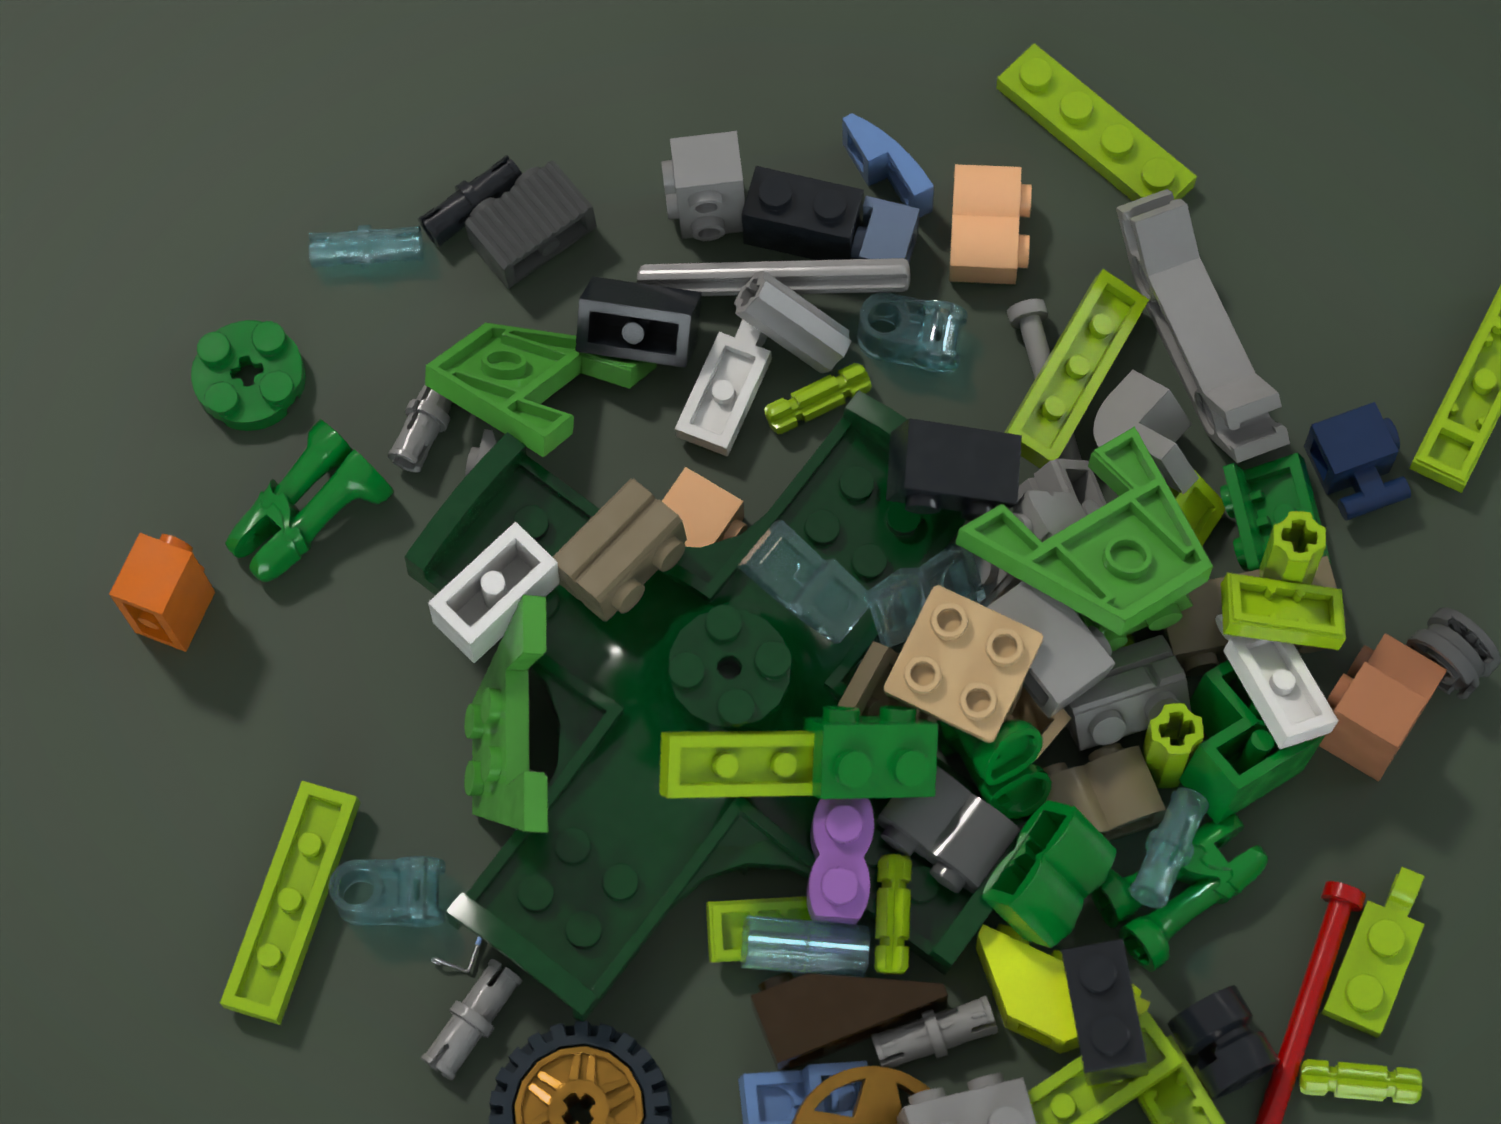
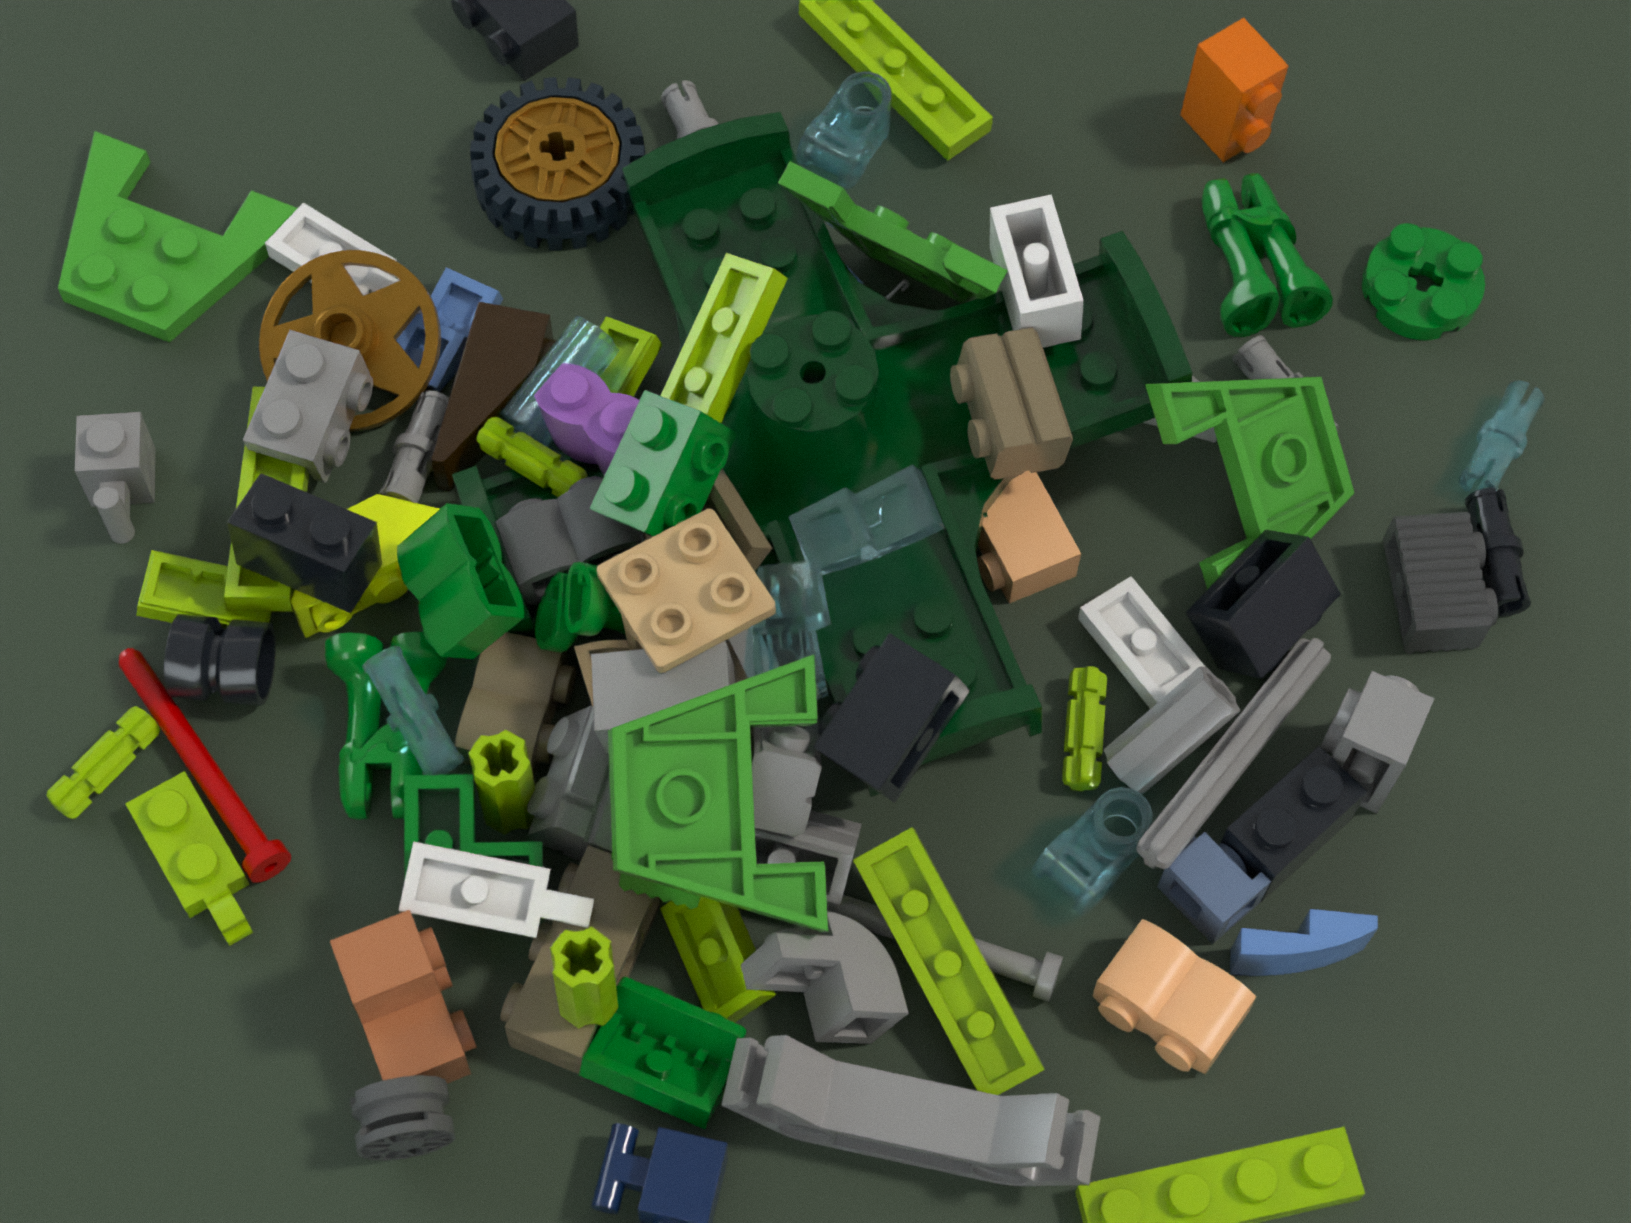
camera: 115 degrees right, 5 degrees down
(1282, 611) = (518, 950): lime plate -> none

